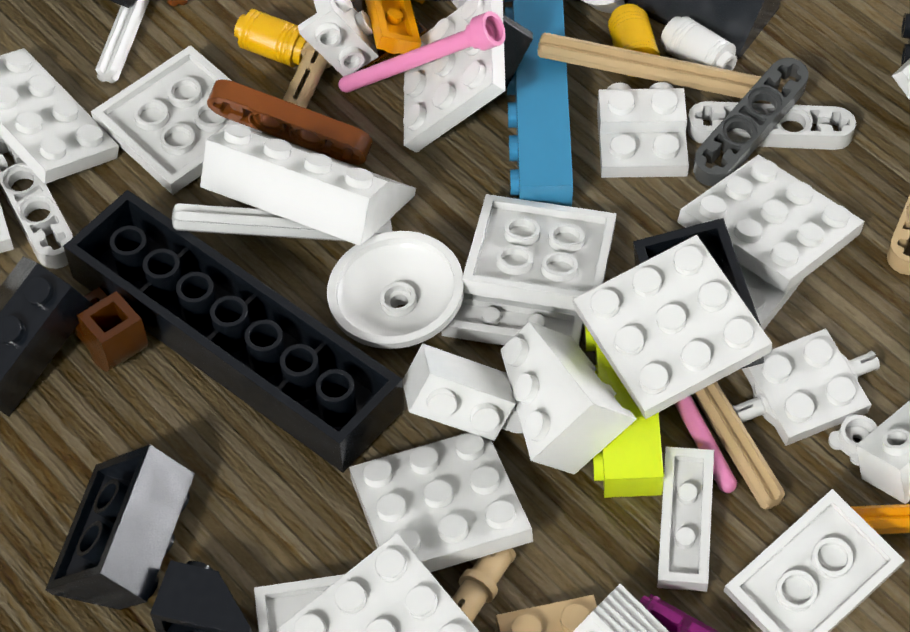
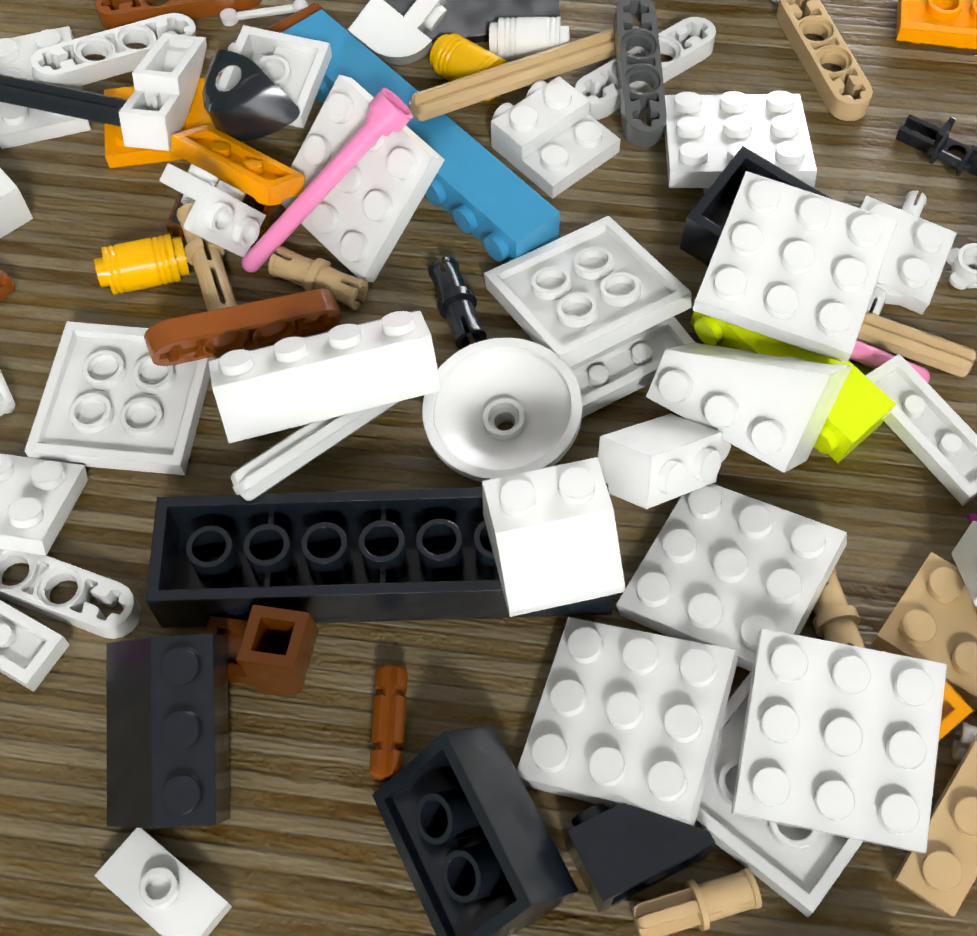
camera: 40 degrees left, 5 degrees up
(146, 426) = (388, 722): none -> dark orange axle
(280, 535) = (629, 719): none -> white plate
(322, 378) = (553, 536): none -> white slope
(378, 123) = (317, 275): none -> tan pin
(450, 202) = (456, 302): none -> black pin

